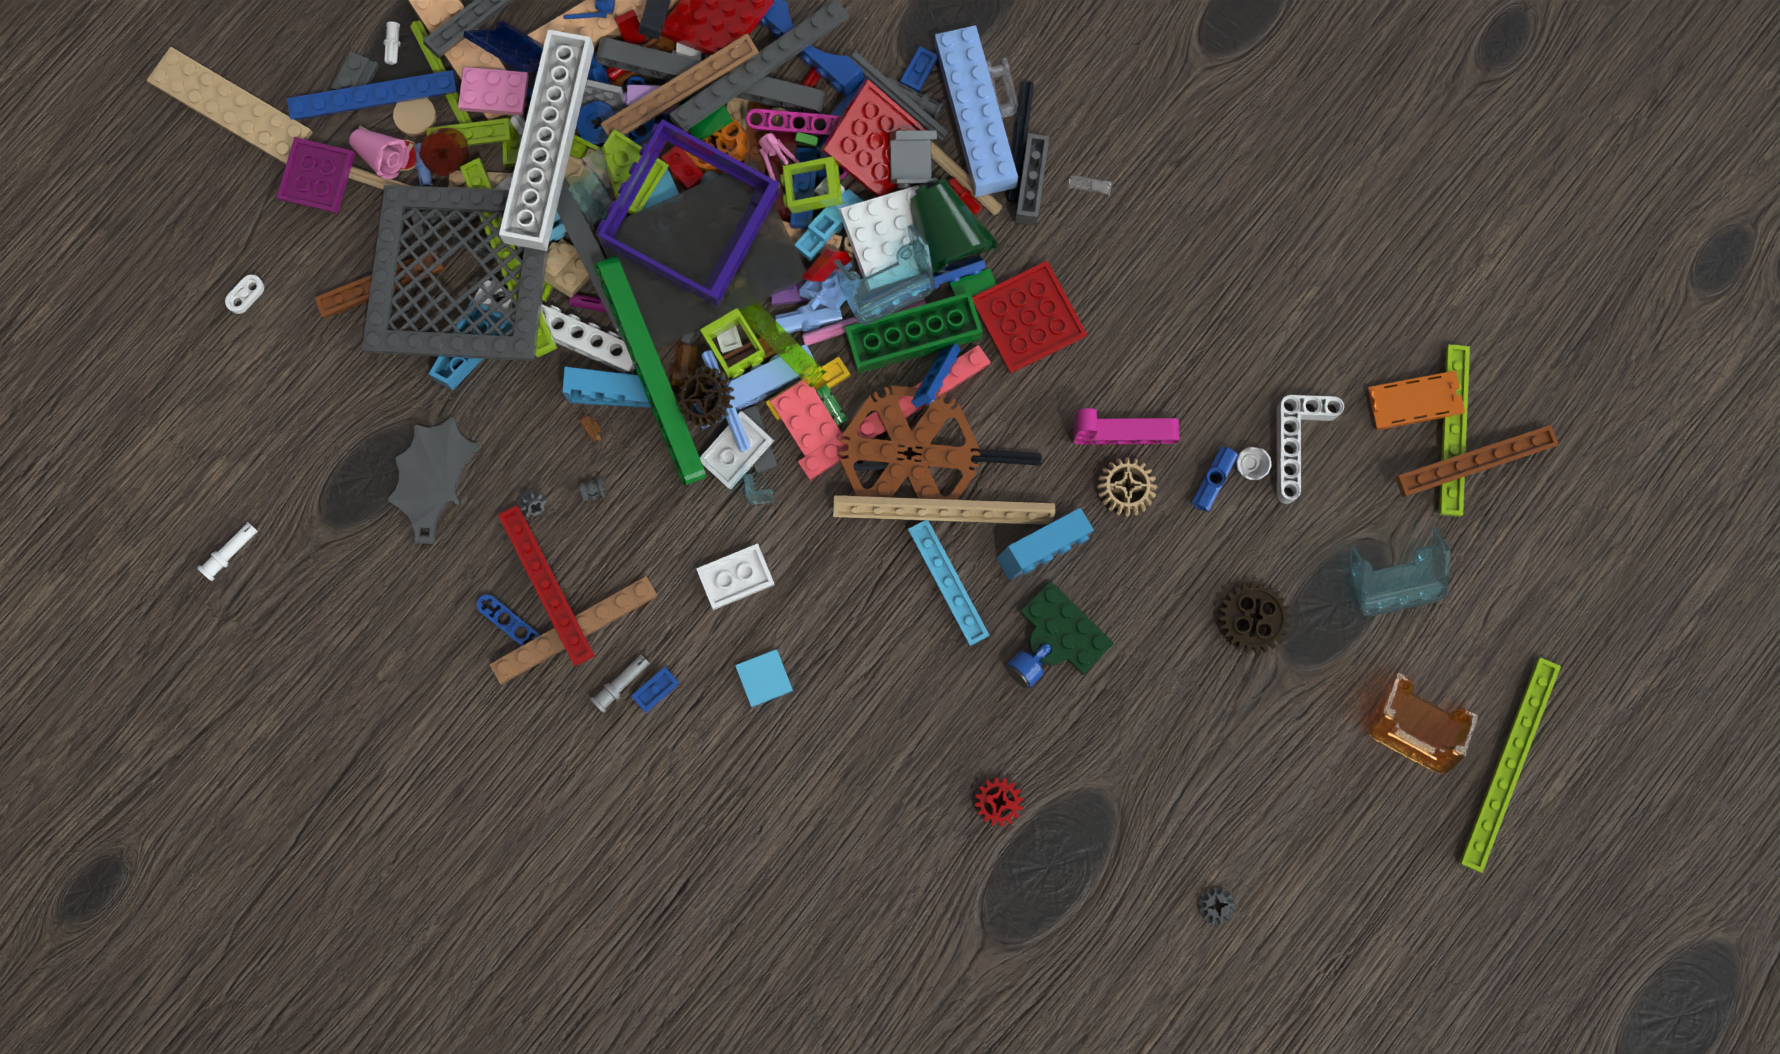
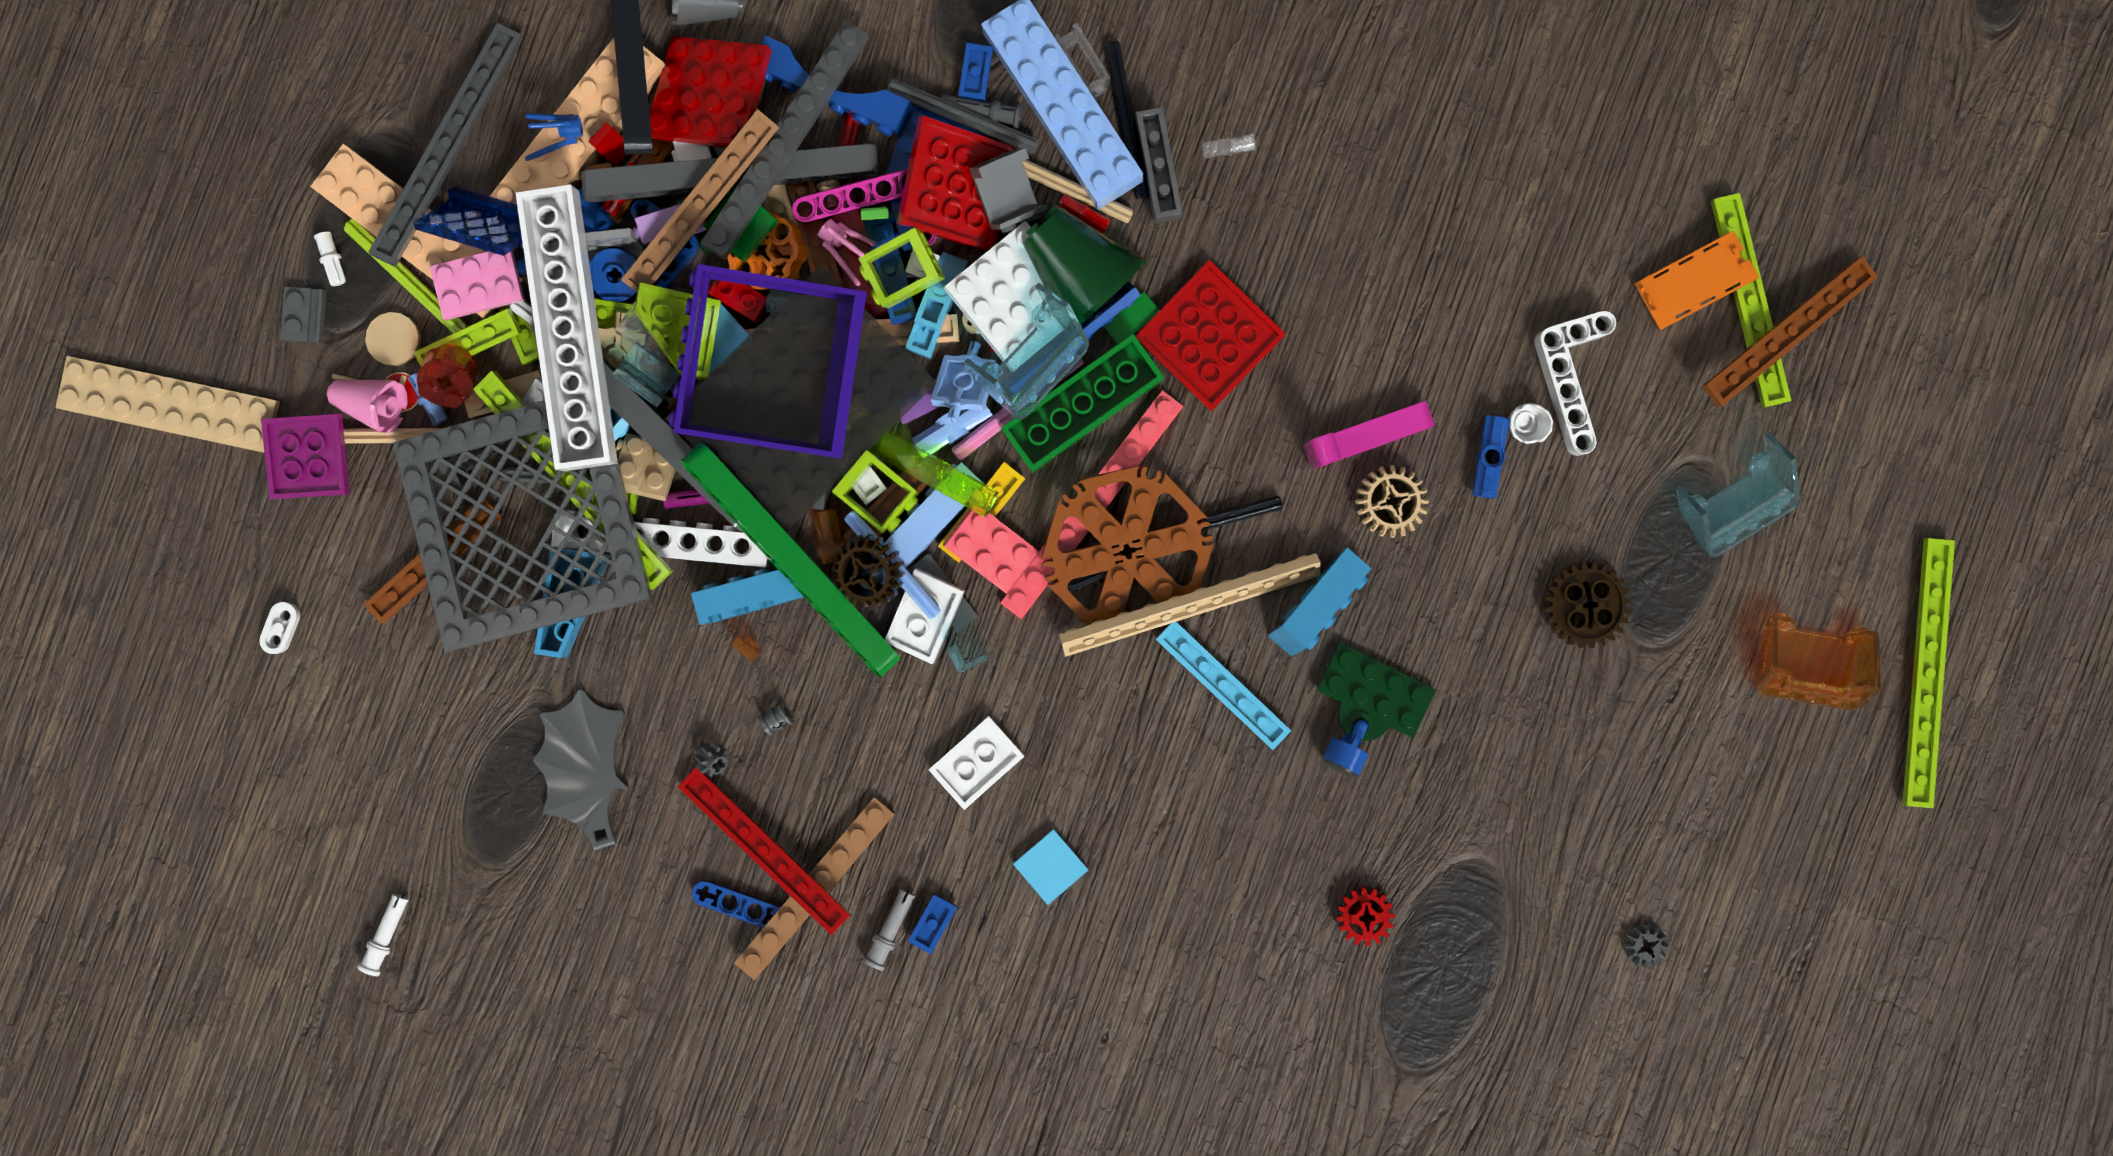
camera: 15 degrees left, 10 degrees up
(372, 95) = (333, 333): blue plate -> none
(825, 265) = (951, 358): red piece -> none
(831, 404) = (1016, 523): green axle -> none
(936, 375) = (1128, 451): blue plate -> none

